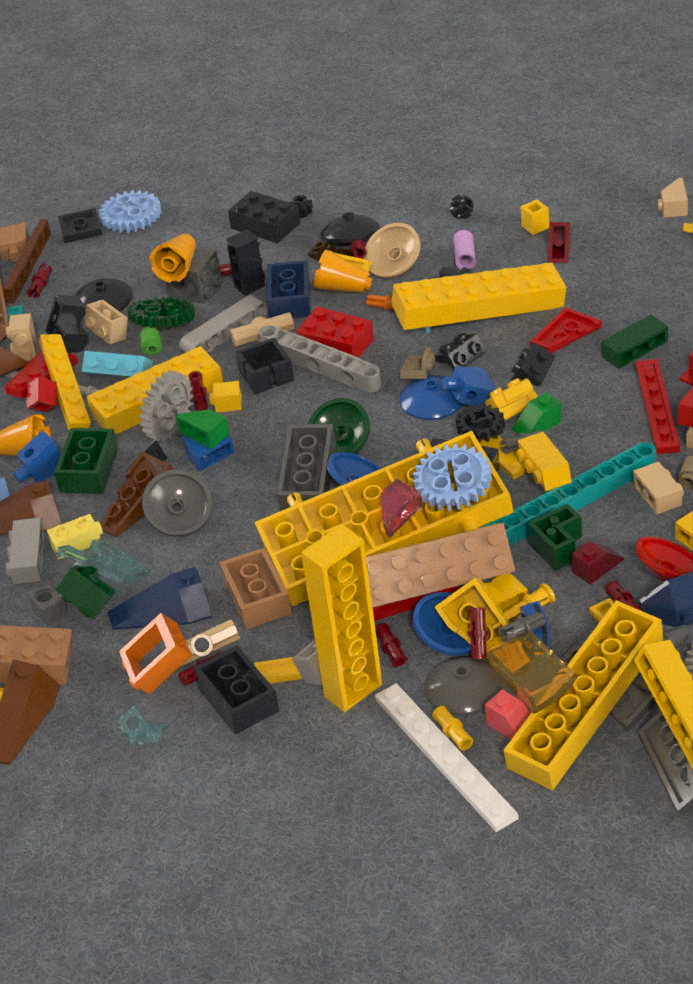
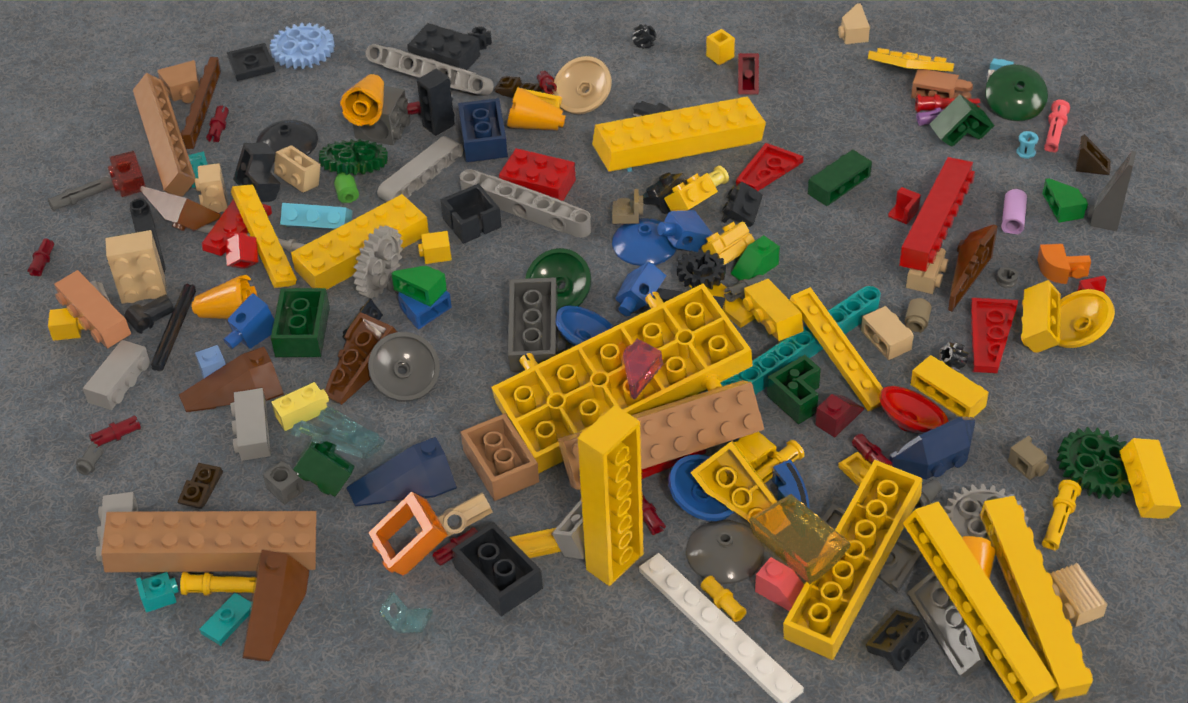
camera: 10 degrees left, 5 degrees up
(199, 391) = (408, 243): dark red pin -> none
(250, 332) = (451, 175): tan piece -> none
(271, 242) = (401, 61): none -> light grey beam
(349, 228) = (534, 62): black dish -> none
(380, 301) = (583, 141): orange axle -> none
(406, 444) = (637, 286): none -> blue torso
(464, 249) = (653, 82): lavender pin -> none
(470, 472) = (671, 339): light blue gear -> none
(478, 633) = (738, 498): dark red pin -> none
(483, 352) = (689, 195): none -> yellow brick
(509, 340) = (719, 178): none -> light yellow bush
(521, 626) = (781, 489): dark grey axle -> none
(602, 497) = (838, 348): none -> yellow plate
(621, 773) = (899, 638): none -> black bracket
(657, 407) = (872, 246): red plate -> none

